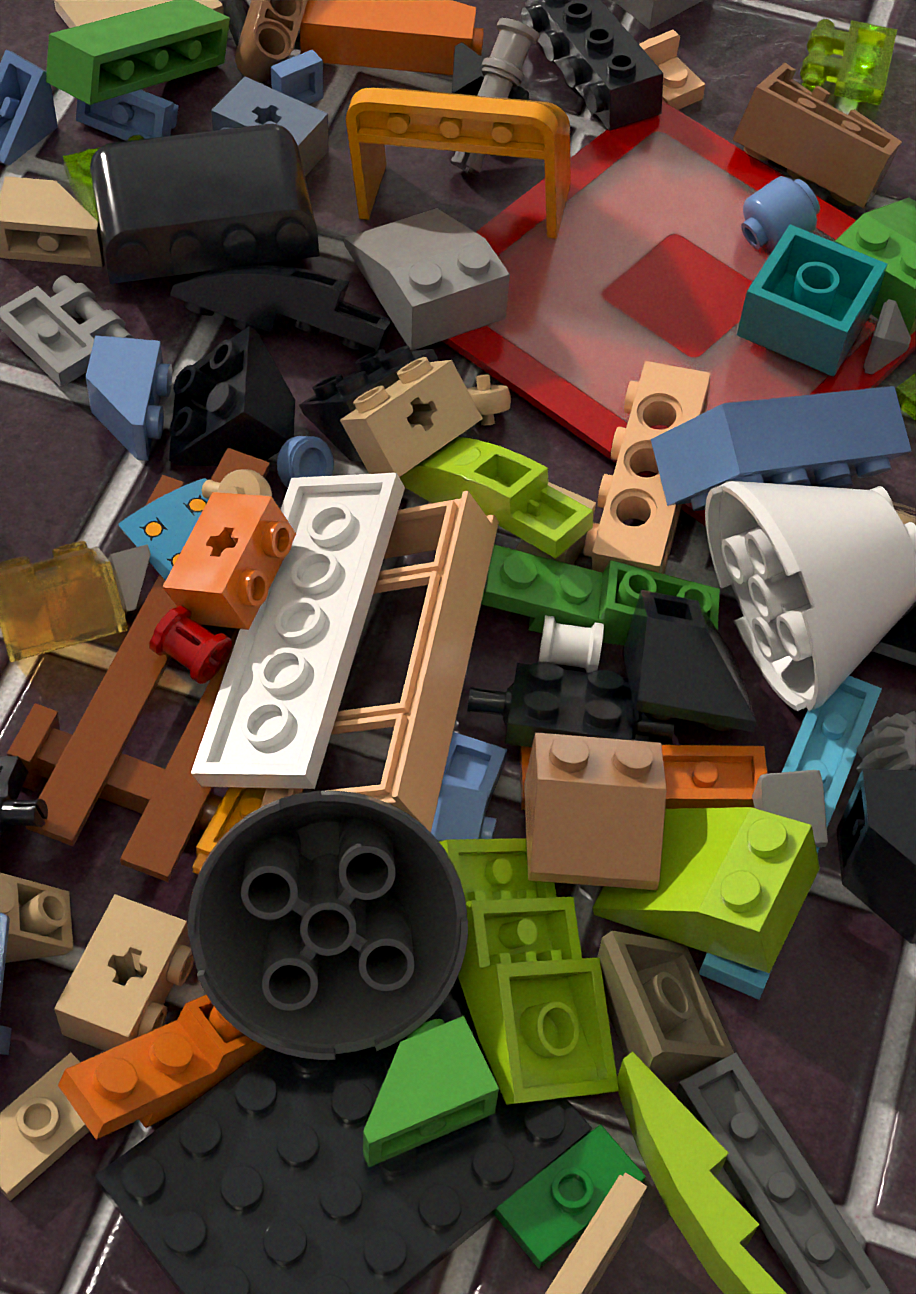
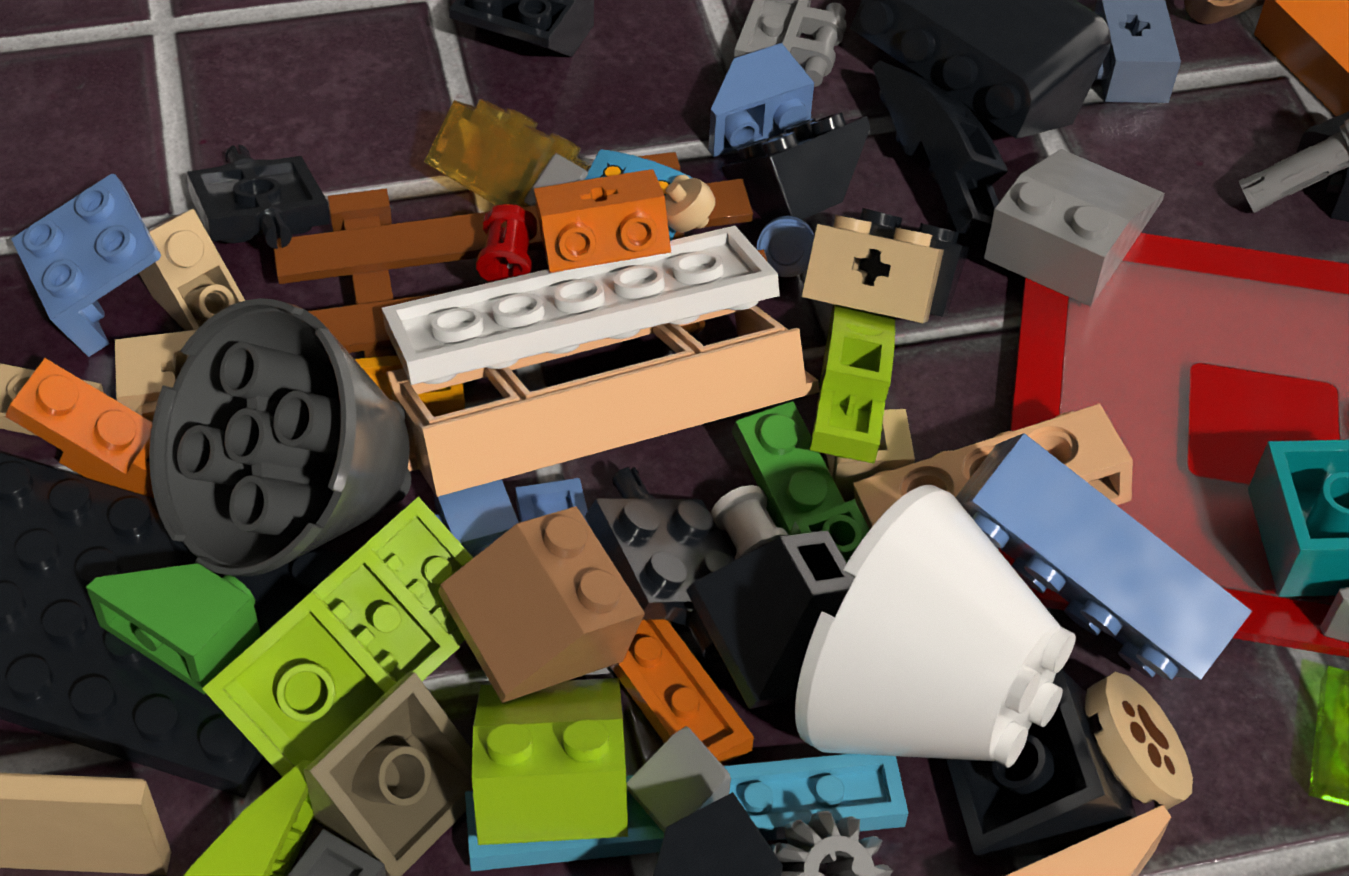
camera: 60 degrees right, 5 degrees down
(300, 77) = (1210, 34): medium blue plate -> none
(457, 124) = (1191, 99): light orange windscreen -> none
(489, 398) = (977, 335): tan piece -> none
(565, 1196) = (189, 803): green plate -> none

